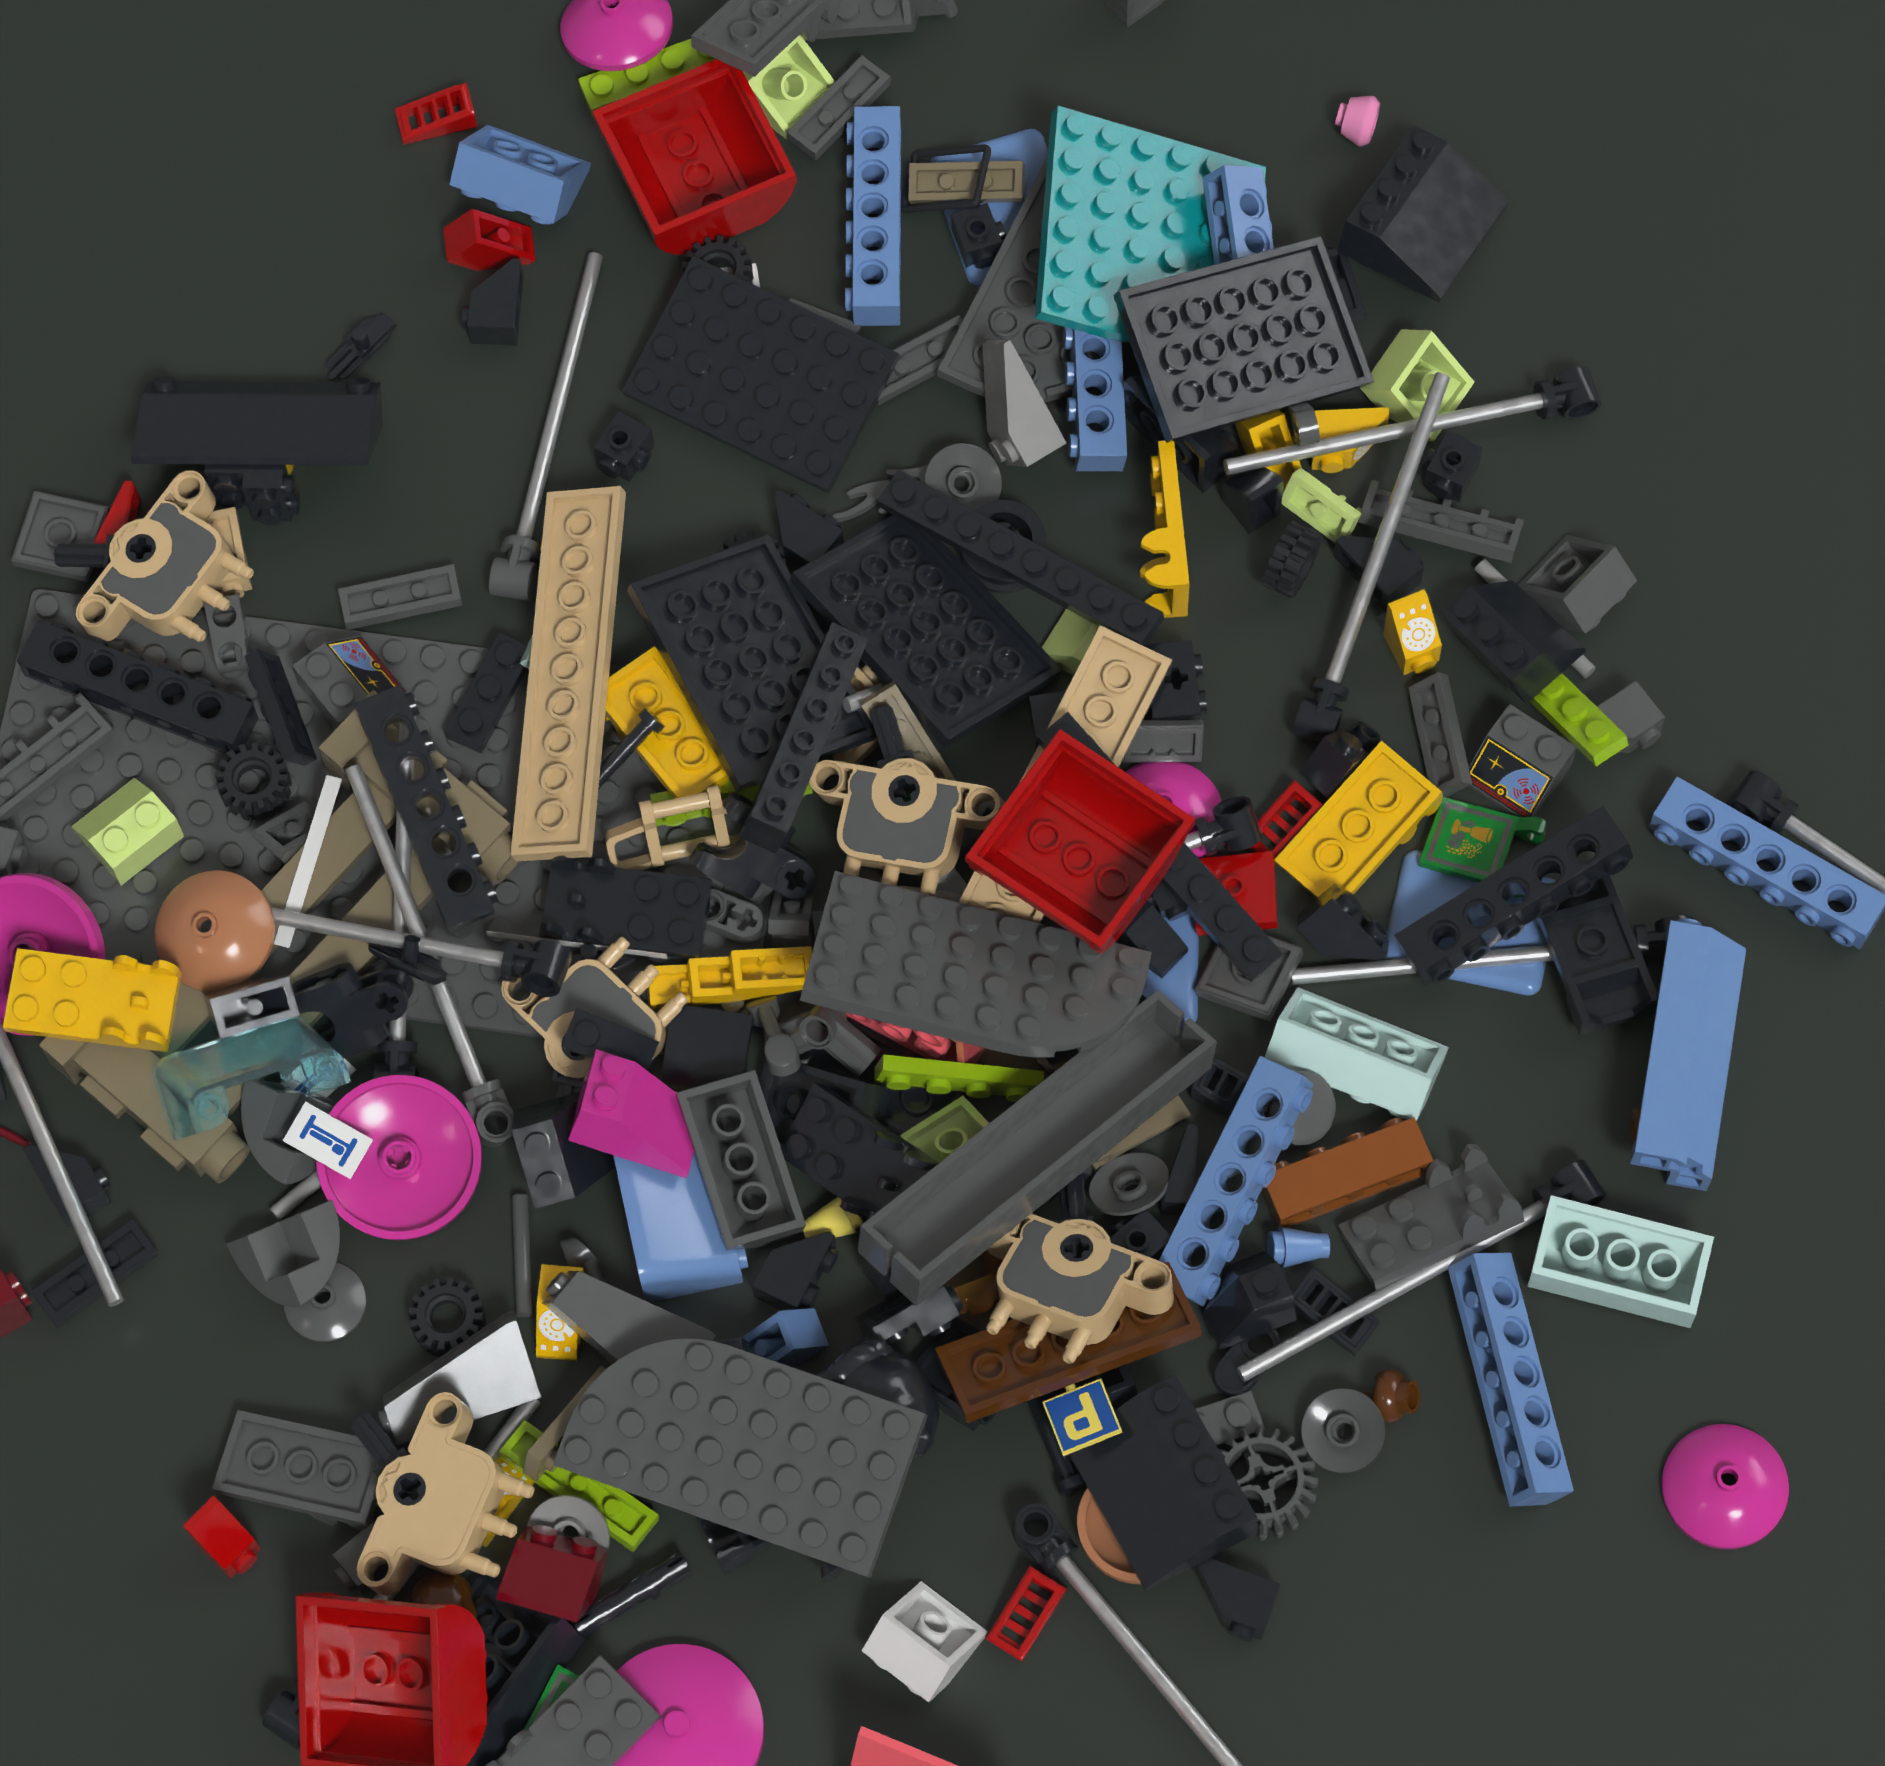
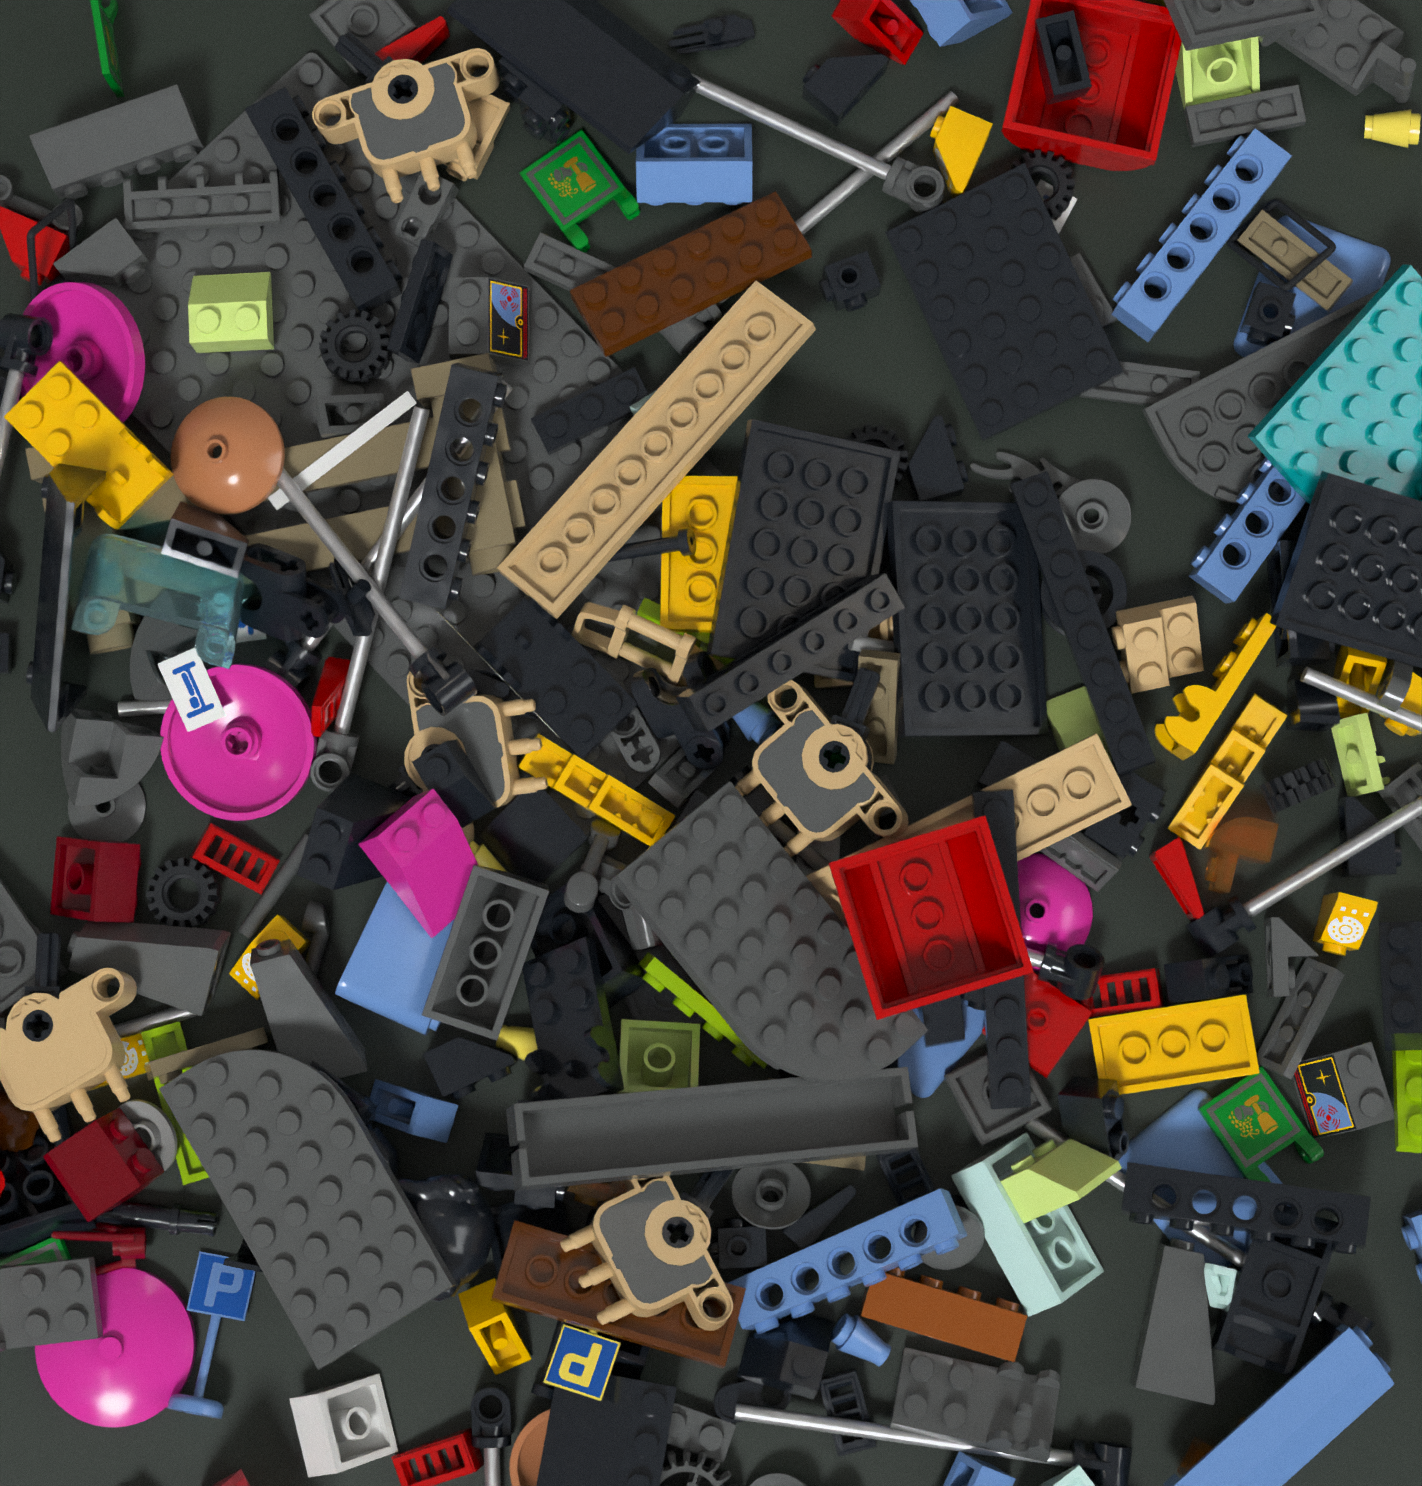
camera: 35 degrees right, 15 degrees up
(158, 1131) = (65, 499): none -> black slope
(337, 535) = (575, 184): none -> green flag
(360, 1359) = (95, 879): none -> dark red slope
(426, 449) = (696, 165): none -> medium blue slope
(446, 1060) = (328, 694): none -> red slope
(468, 1273) = (205, 842): none -> red slope
(488, 529) = (690, 273): none -> reddish brown plate
(602, 340) = (899, 178): none -> flat silver piece
(621, 1632) = (126, 1242): none -> dark red plant
(629, 287) = (958, 147): none -> yellow slope
(660, 156) = (1061, 58): none -> black slope
(733, 1614) = (219, 1293): none -> piece
(815, 832) = (757, 722): none -> medium blue cone
(963, 35) = (1393, 128): none -> light yellow cone
(987, 1463) = (494, 1328): none -> yellow slope
(1015, 411) = (1174, 496): light grey slope -> none
(1094, 532) = (1158, 643): none -> tan plate
(1228, 594) = (1227, 771): none -> yellow slope
(1252, 699) = (1175, 870): none -> red slope
(1282, 637) = (1238, 838): none -> clear orange brick
(1346, 991) = (1056, 1177): none -> yellowish green slope
(1381, 693) = (1280, 945): none -> dark grey slope
(1544, 1046) = (1175, 1329): none -> dark grey slope
(1546, 976) = (1219, 1284): none -> light aqua slope

